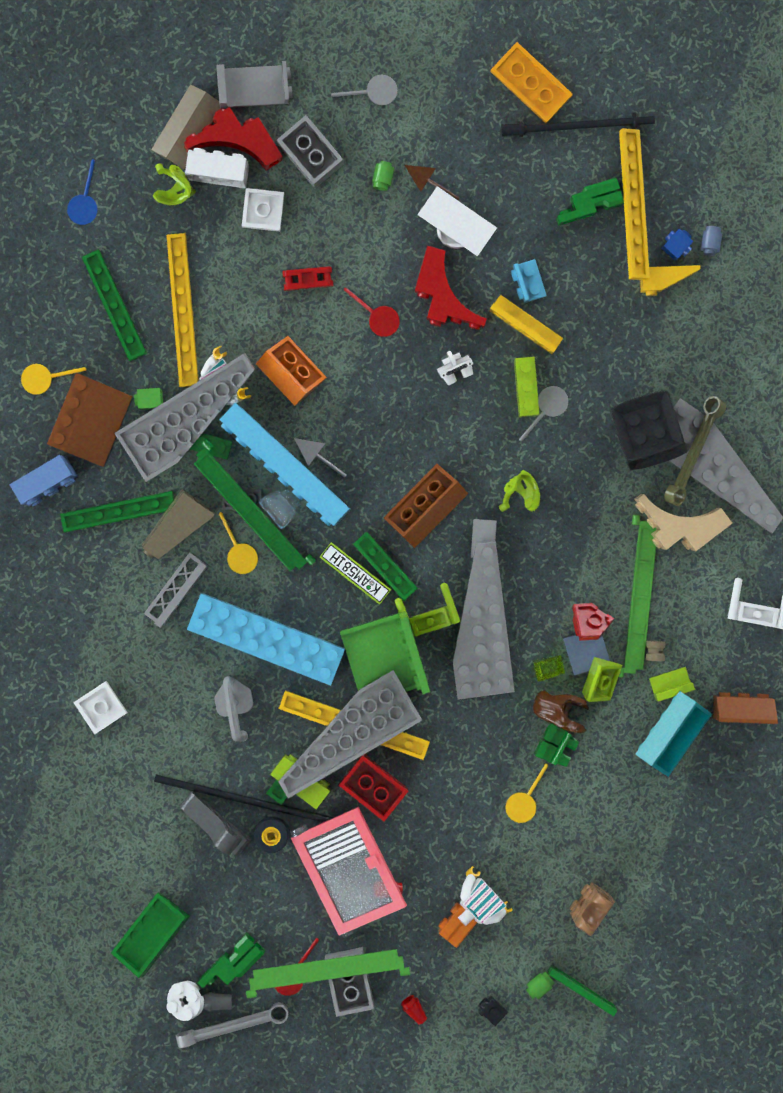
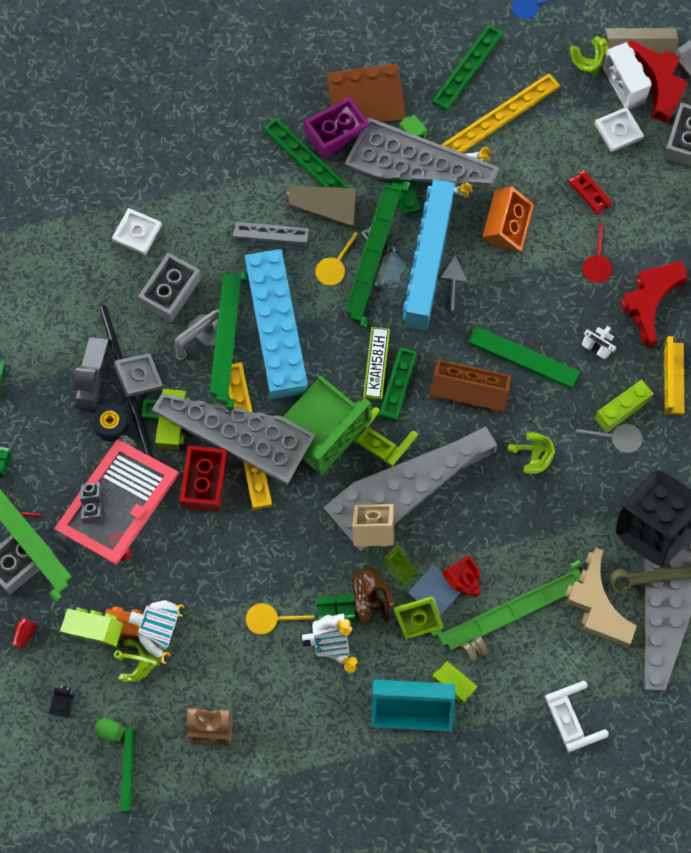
camera: 60 degrees right, 20 degrees down
(37, 378) = (372, 46): yellow piece -> none
(44, 481) = (296, 87): medium blue brick -> none
(106, 468) = (335, 127): none -> magenta slope
(176, 712) = (169, 287): none -> light grey brick
(242, 786) = (138, 375): none -> light grey plate
(255, 692) = (225, 337): none -> green piece
(338, 893) = (91, 502): none -> dark grey slope
(427, 442) = (524, 357): none -> green tile
(449, 955) = (92, 626): none -> brick
(502, 927) = (146, 662): none -> lime helmet
(503, 671) = (373, 525): none -> tan slope
(578, 765) = (331, 640): none -> torso
(744, 708) = (475, 757): dark orange slope -> none

